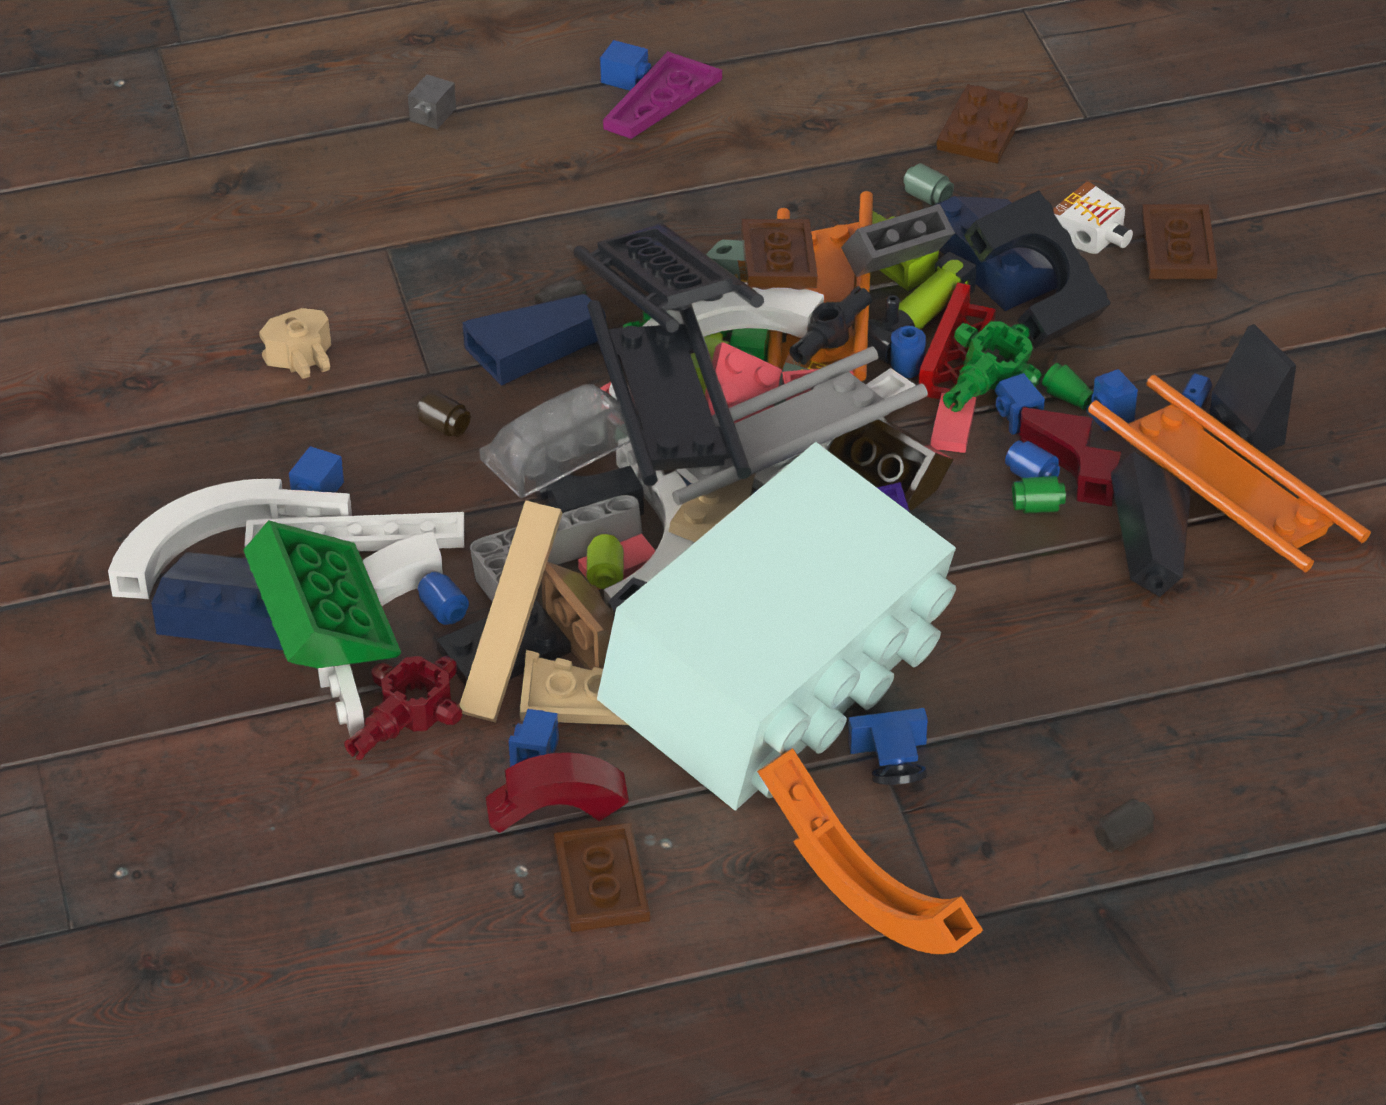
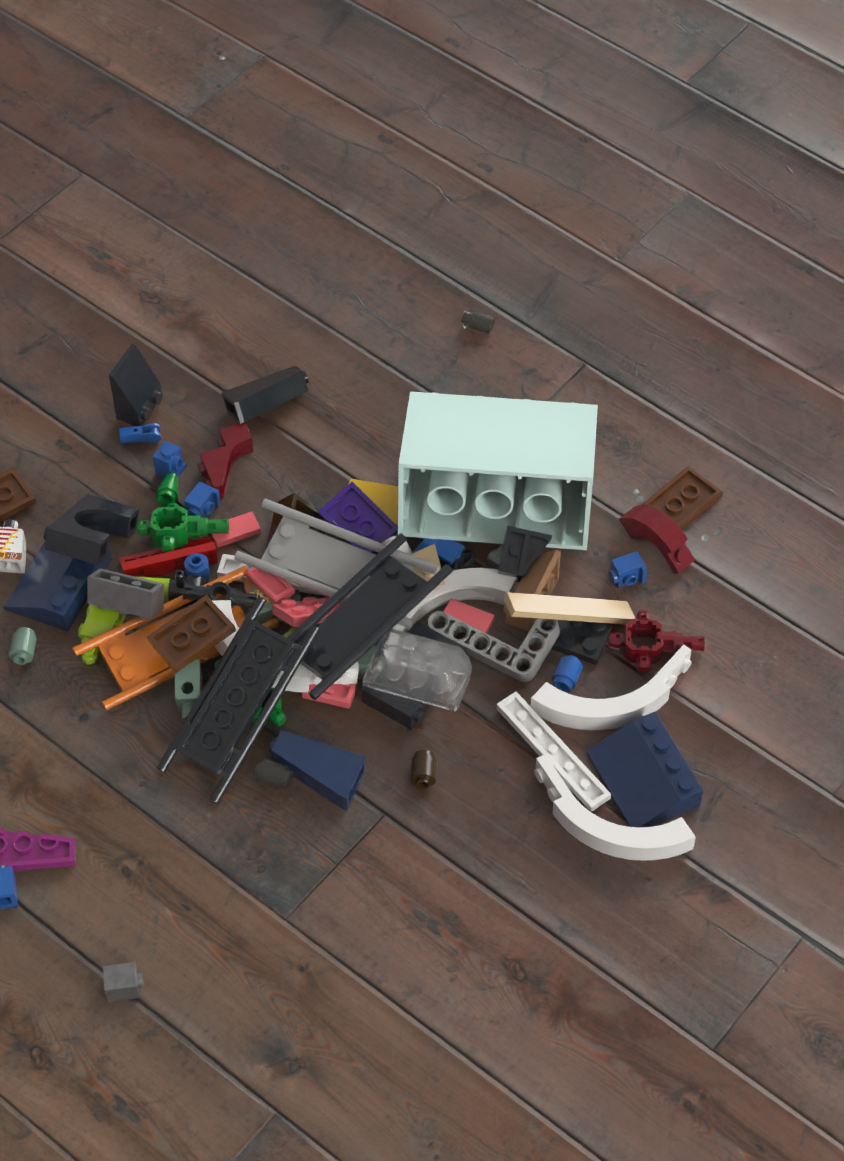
camera: 125 degrees left, 10 degrees up
(298, 343) = (426, 884): tan hinge -> none
(317, 472) = (528, 798): blue brick -> none
(319, 598) = (640, 696): green slope -> none
(564, 690) = (584, 575): tan wing -> none
(605, 561) = (486, 605): lime brick -> none
(863, 886) = (607, 367): orange arch -> none
(1031, 461) = (248, 472): blue brick -> none
(1038, 494) = (271, 458): green brick -> none
(1179, 444) = (200, 386): orange piece -> none

